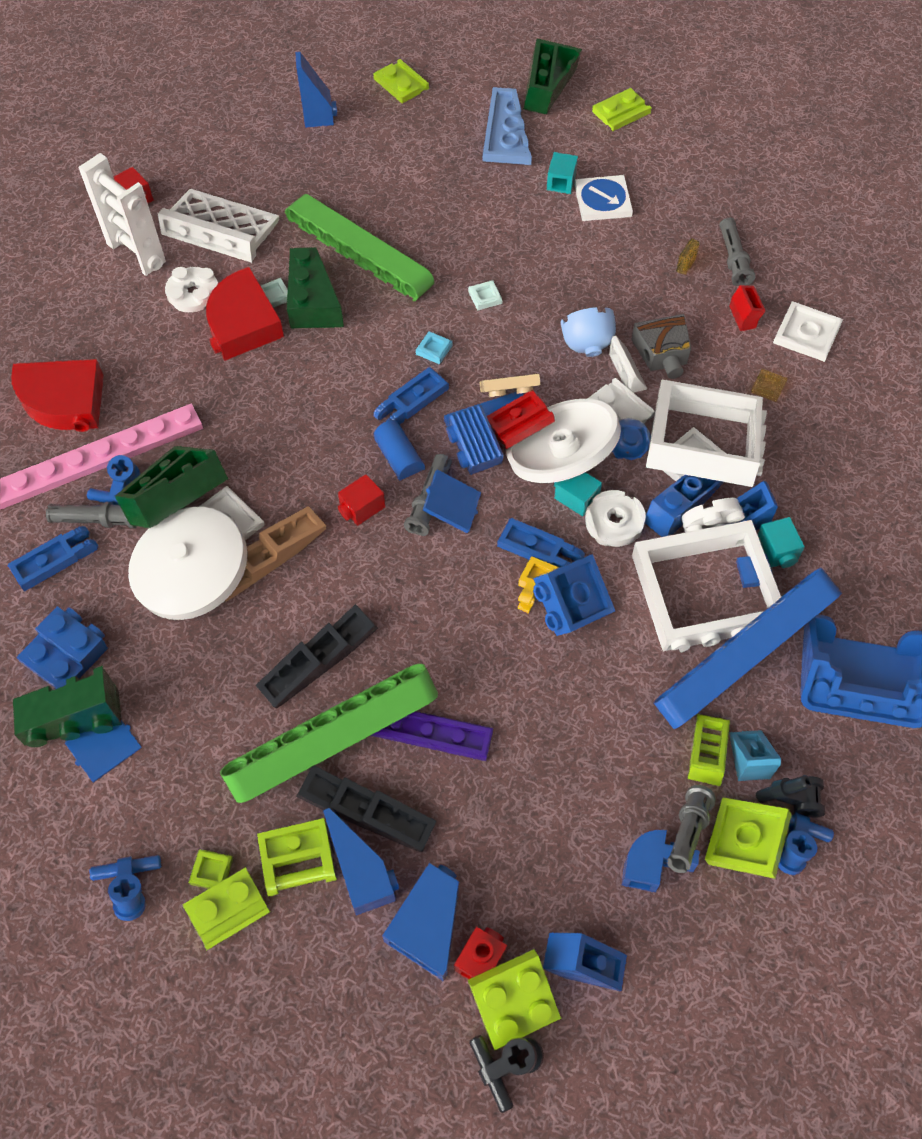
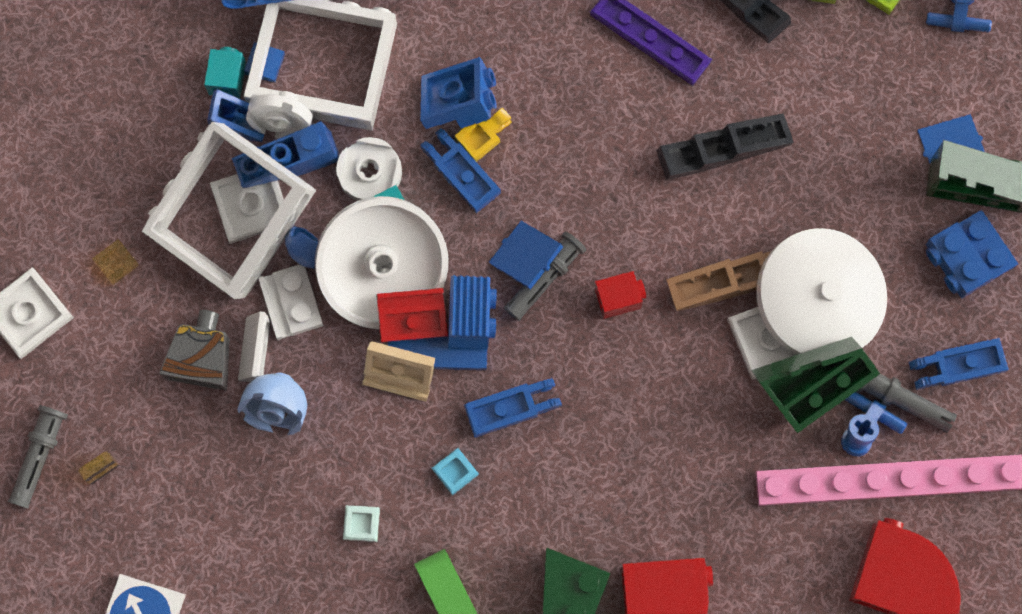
camera: 155 degrees left, 15 degrees up
(329, 733) = (728, 46): bright green beam -> none
(398, 449) = (553, 345): blue brick -> none
(746, 307) = (78, 362): red piece -> none

